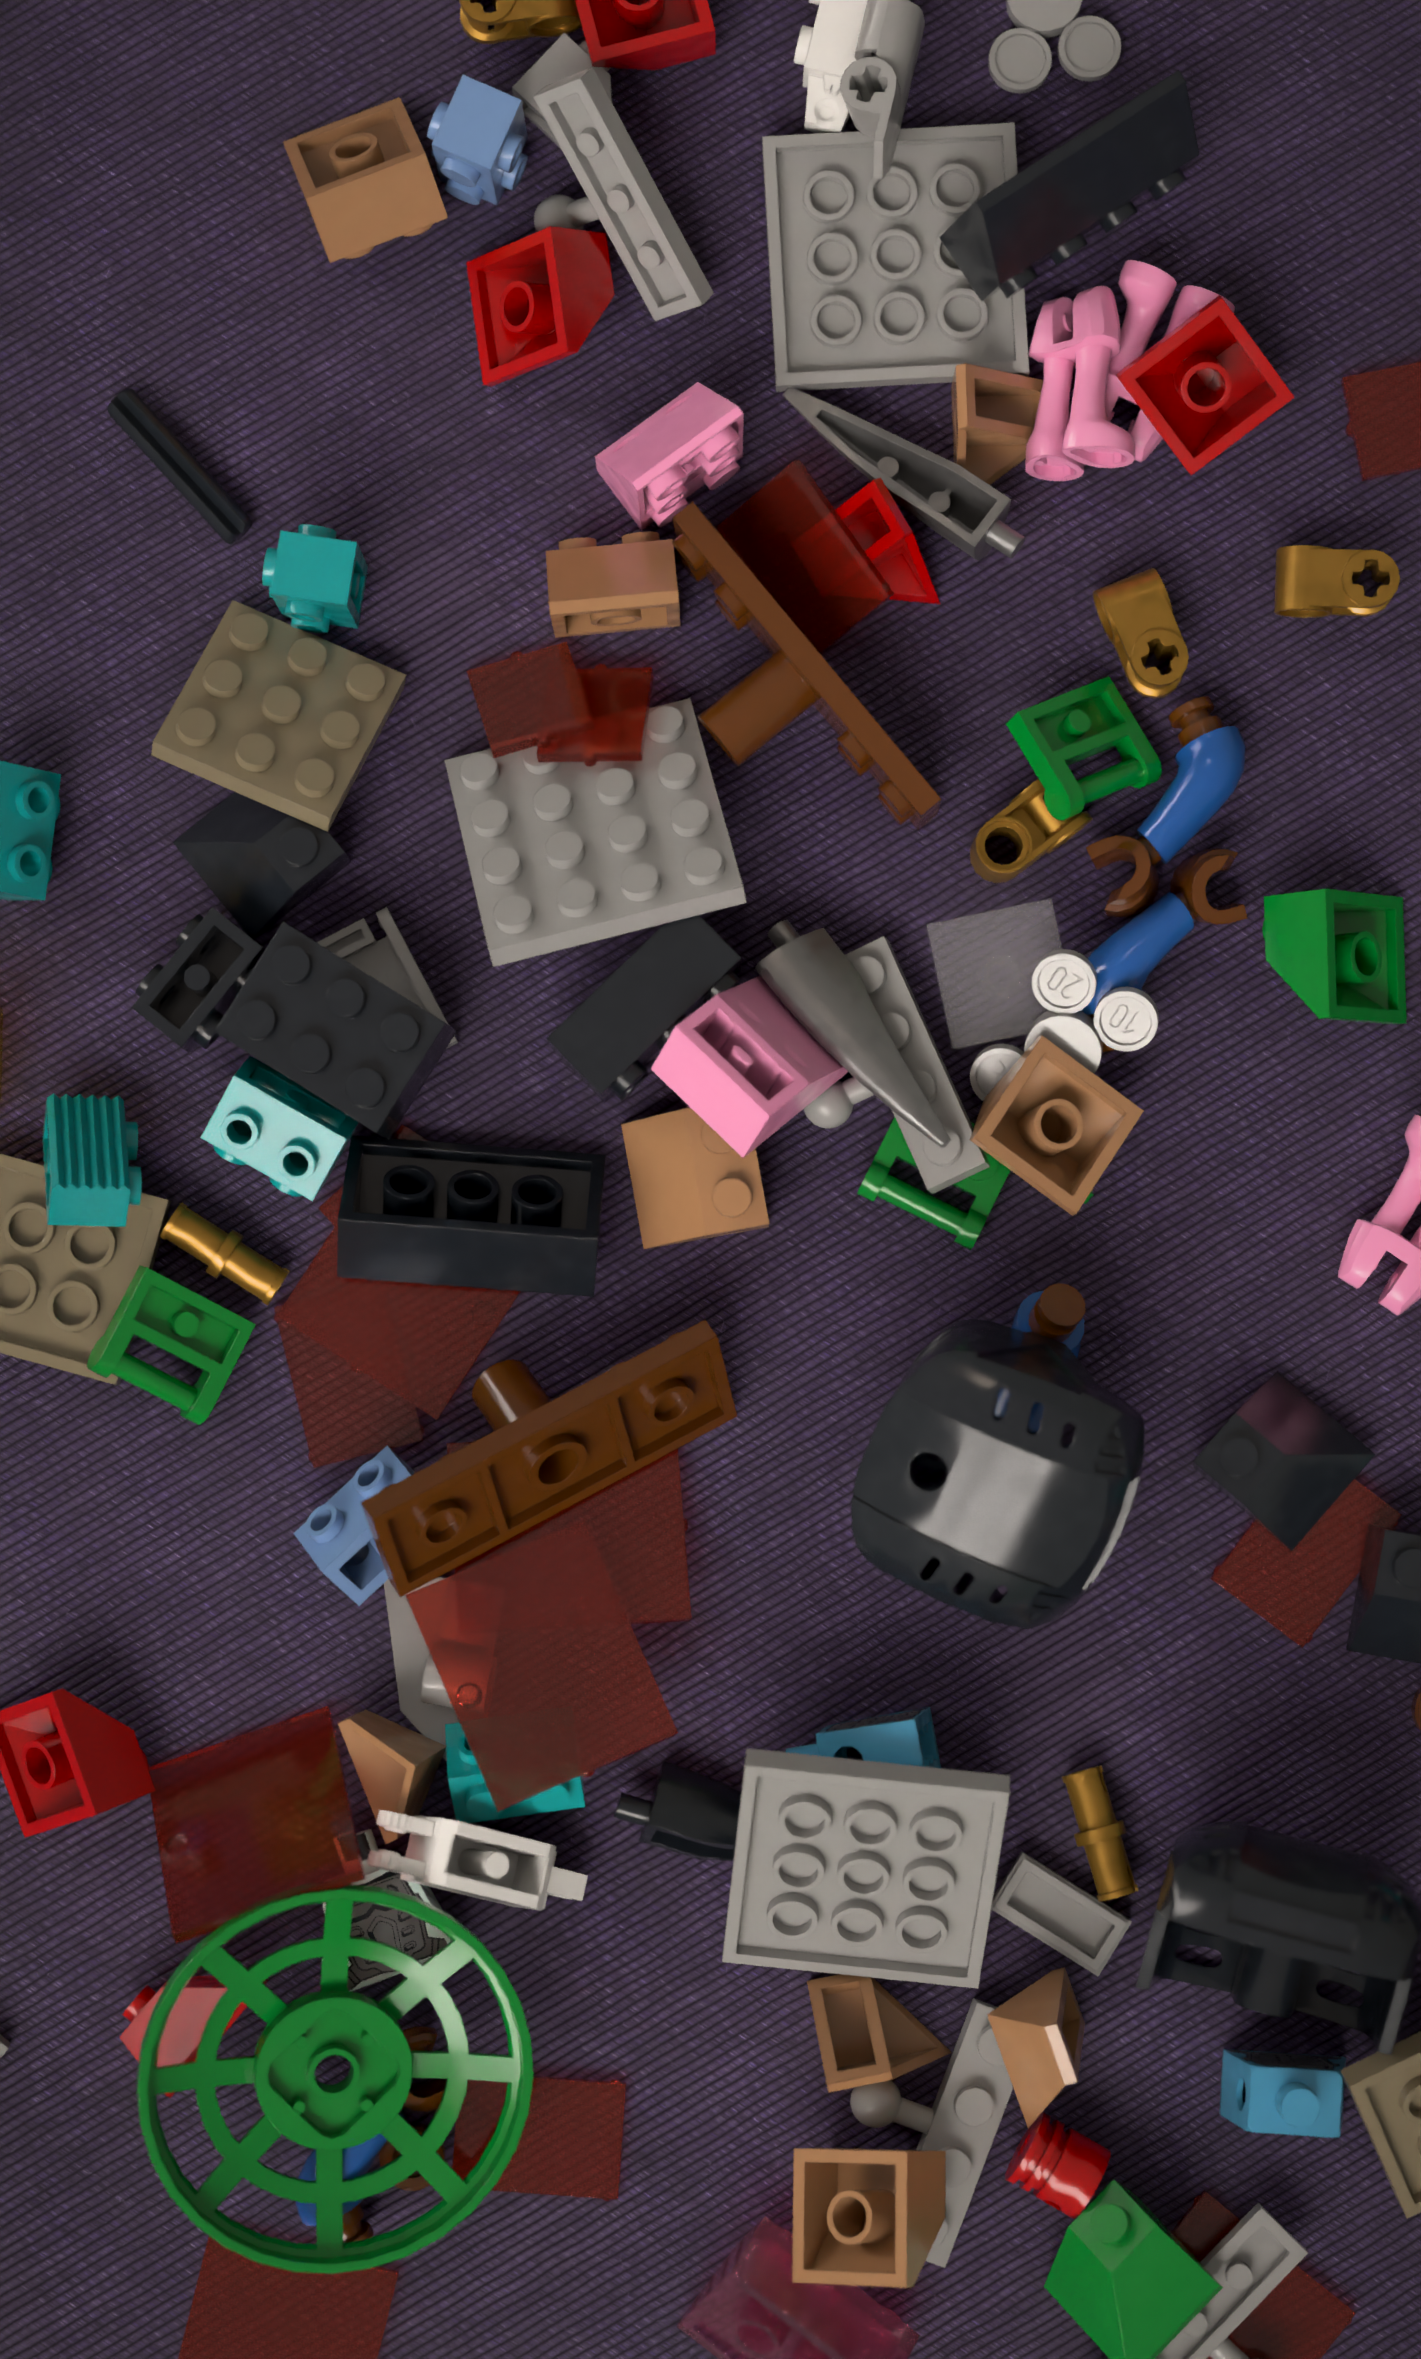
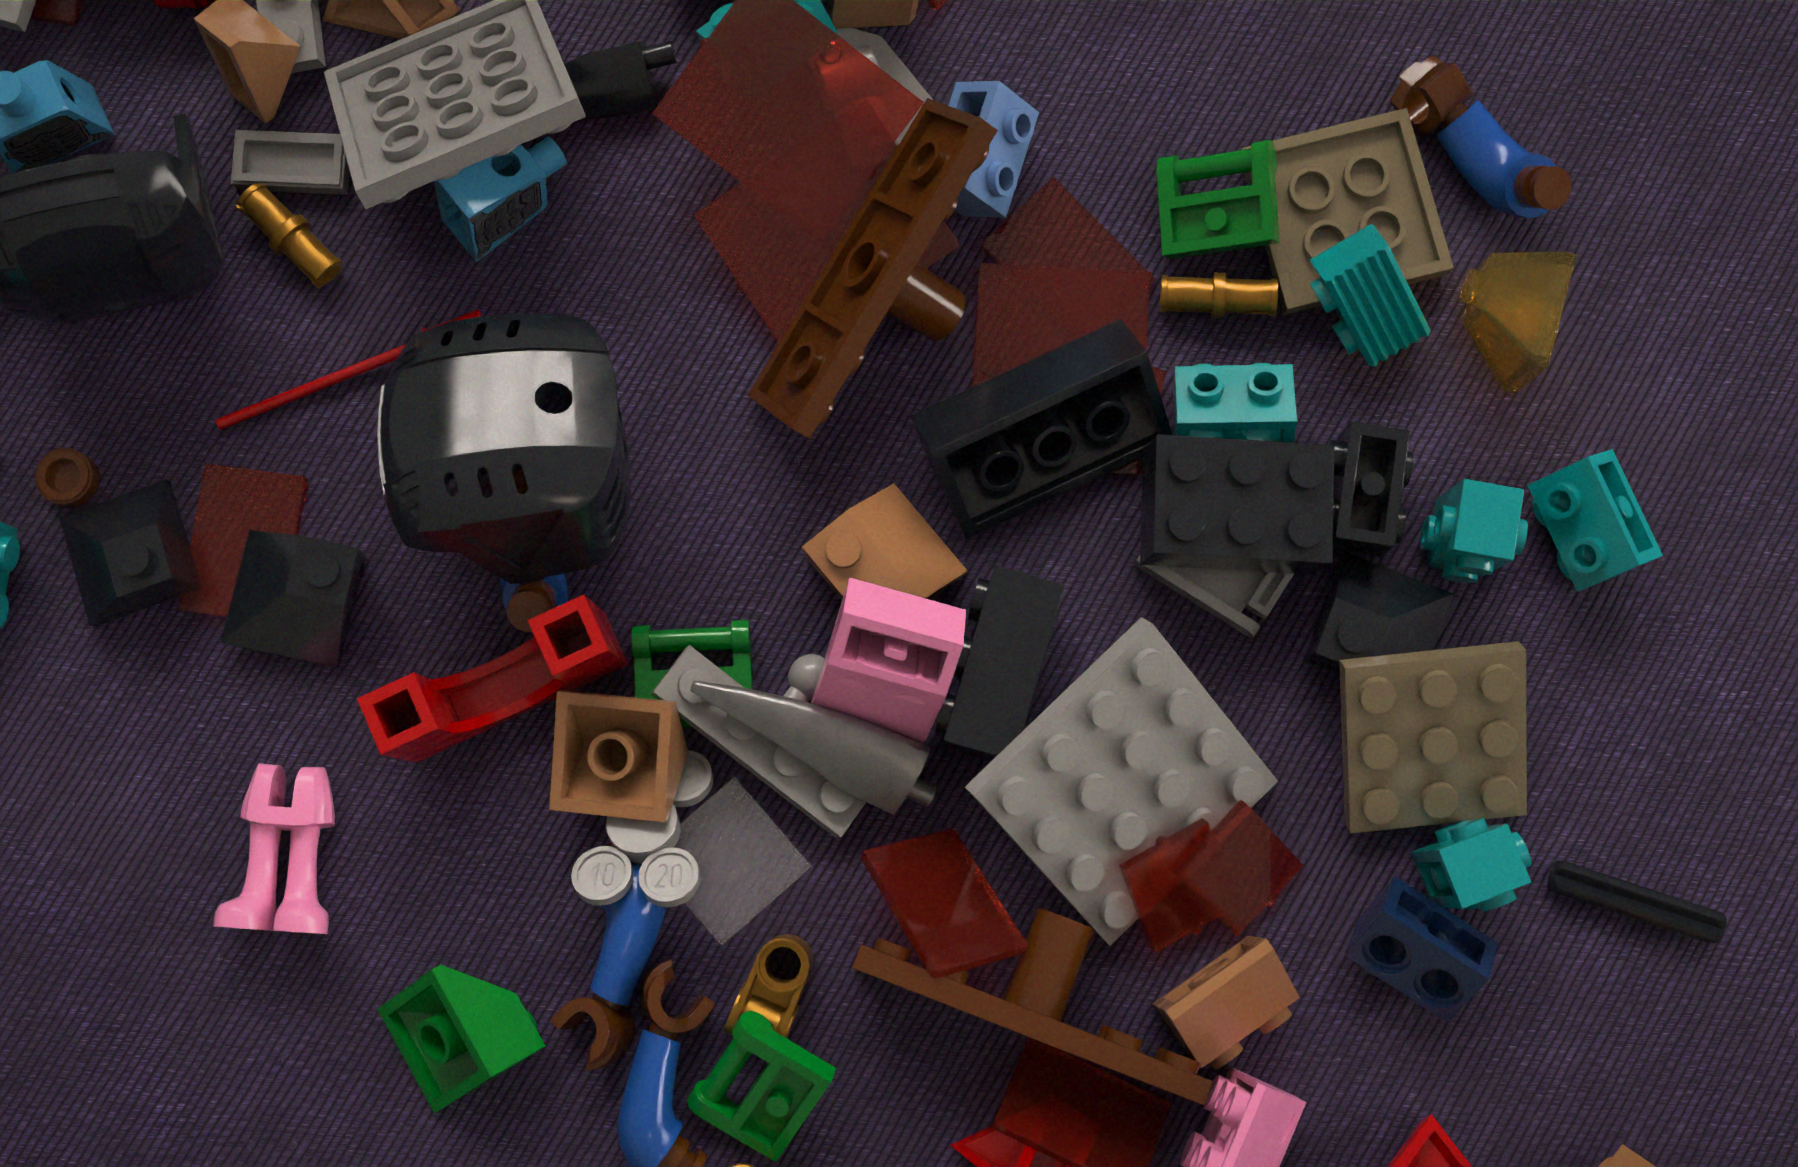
camera: 150 degrees right, 5 degrees down
(127, 881) = (1474, 530): none -> teal brick
(407, 532) = (1422, 950): none -> dark blue brick
(823, 818) = (943, 903): none -> clear red piece
(1022, 1648) = (321, 383): none -> red piece
(1129, 1257) = (427, 715): none -> red arch

